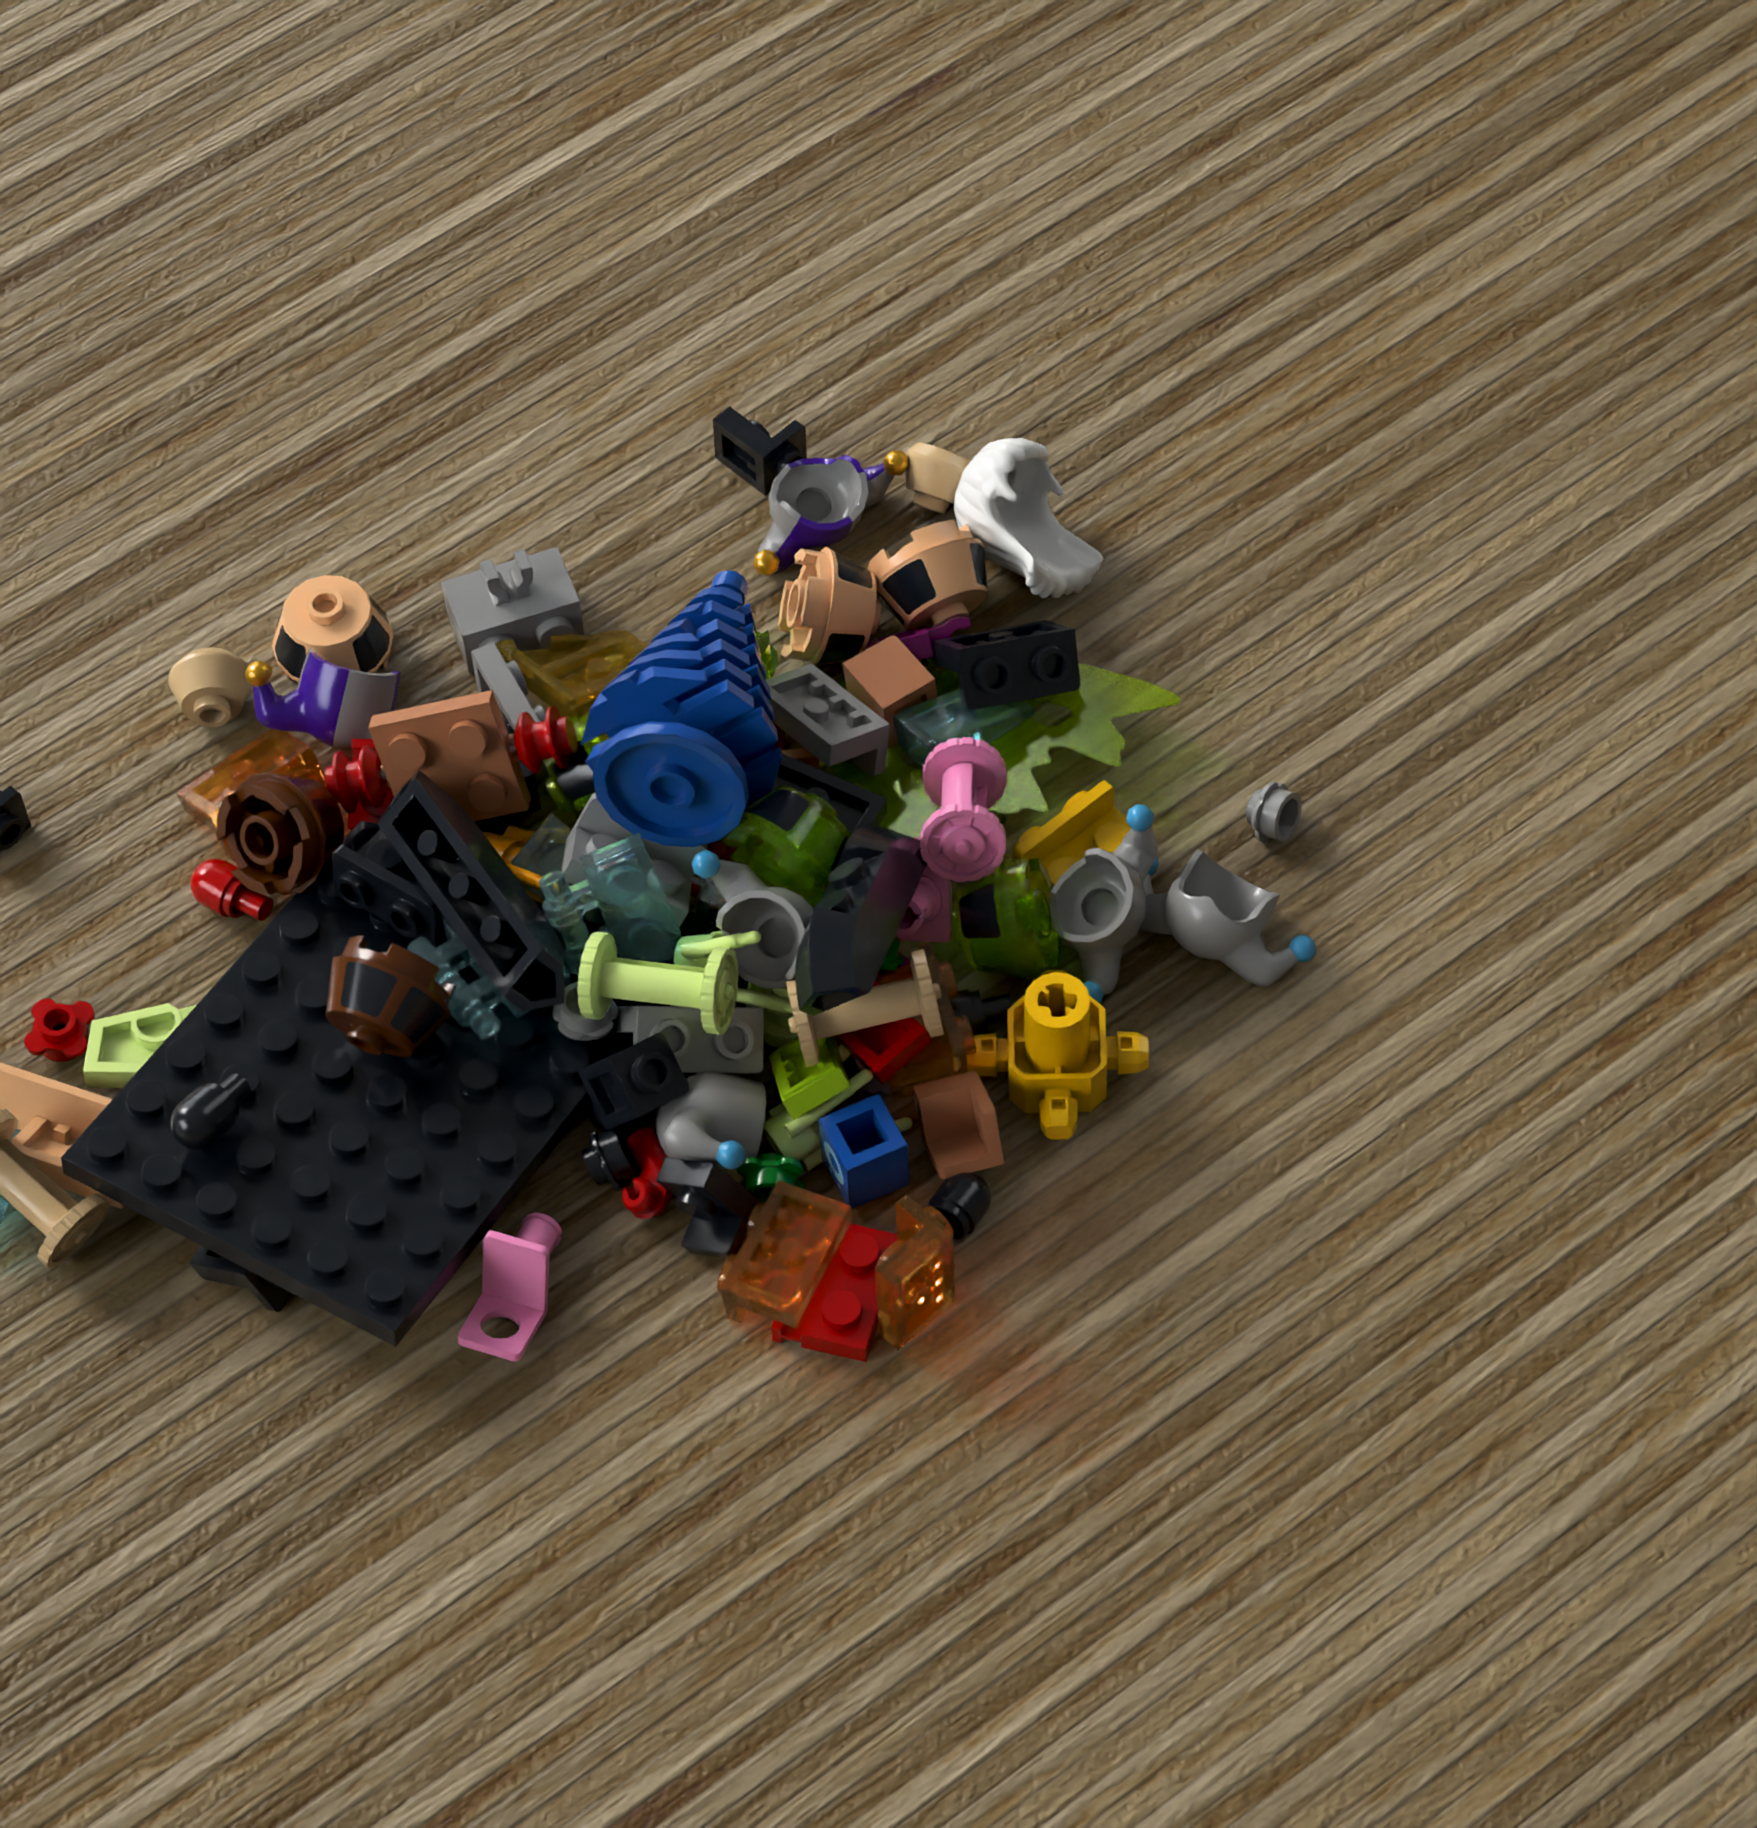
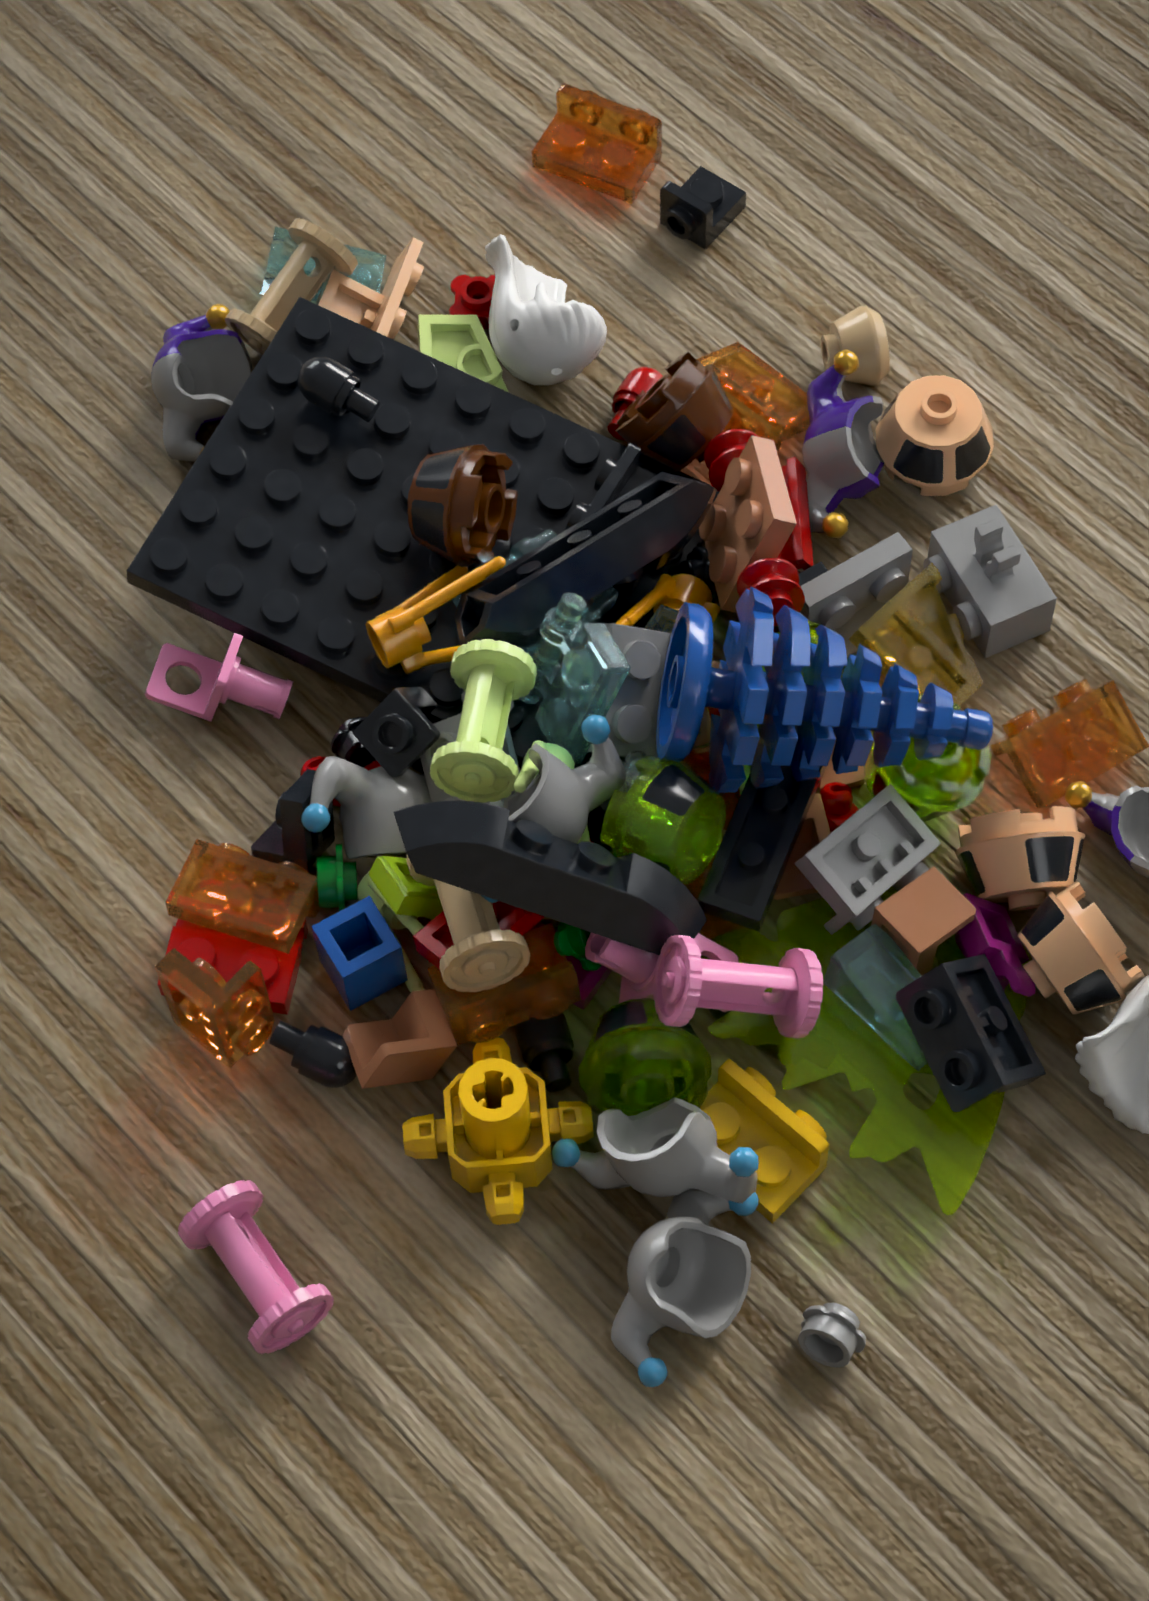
camera: 85 degrees right, 5 degrees up
(117, 1300) = (197, 378): none -> light grey piece
(142, 970) = (532, 325): none -> white piece
(519, 1076) = (402, 630): none -> light orange plant
(685, 554) = (1071, 742): none -> clear orange bracket
(1230, 1232) = (228, 1226): none -> bright pink hose

